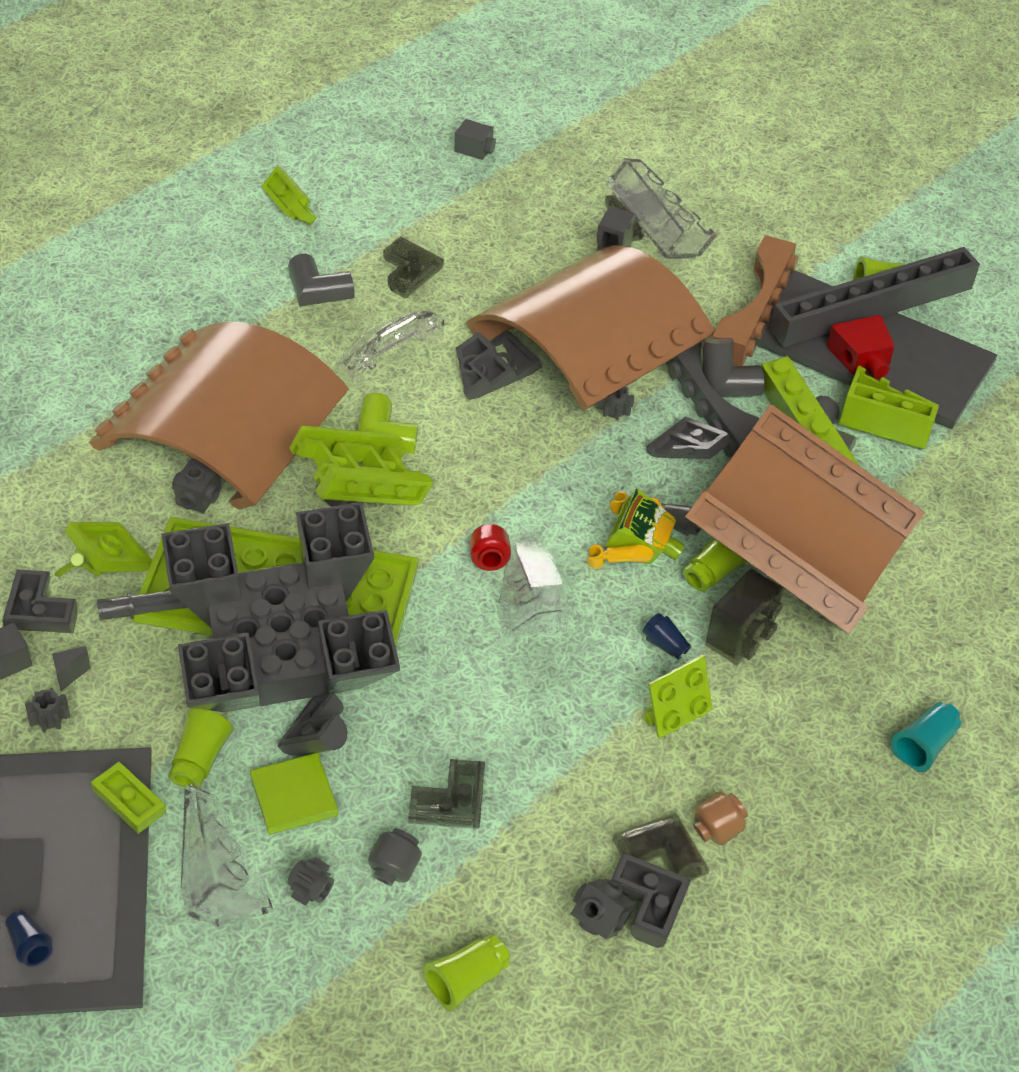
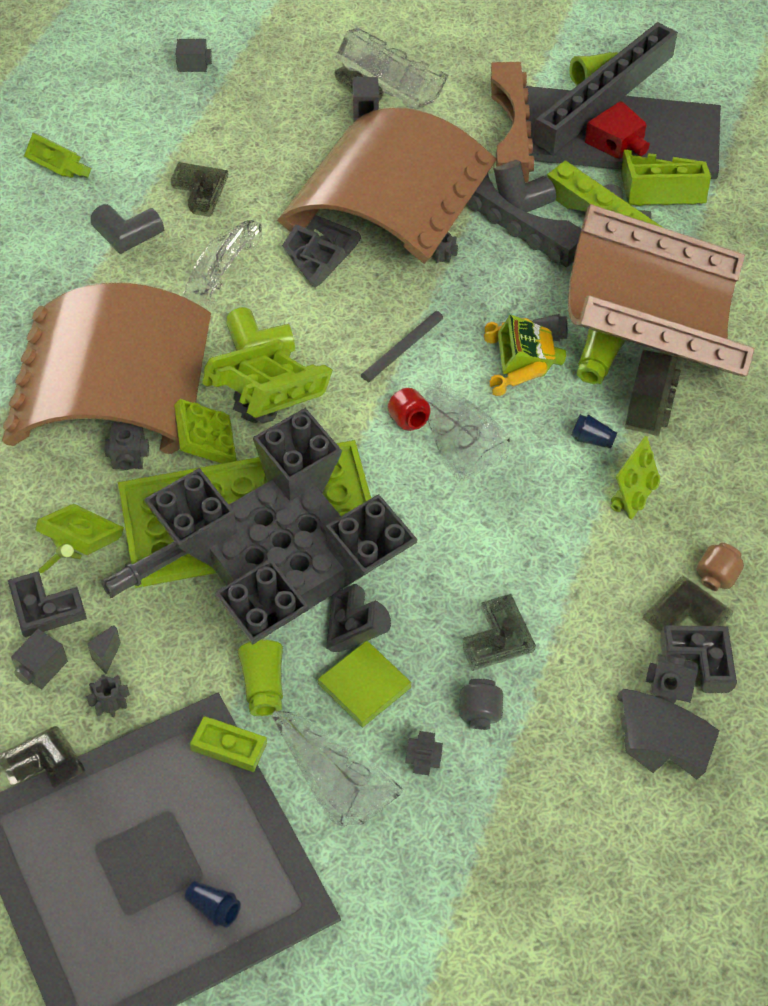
camera: 20 degrees left, 5 degrees up
(276, 498) = (204, 432): none -> lime tile
(466, 970) = (593, 775): lime plant -> none
(522, 485) = (402, 346): none -> dark grey bar
(565, 958) = (665, 731): none -> dark grey slope
(689, 440) = (521, 259): dark grey wing -> none

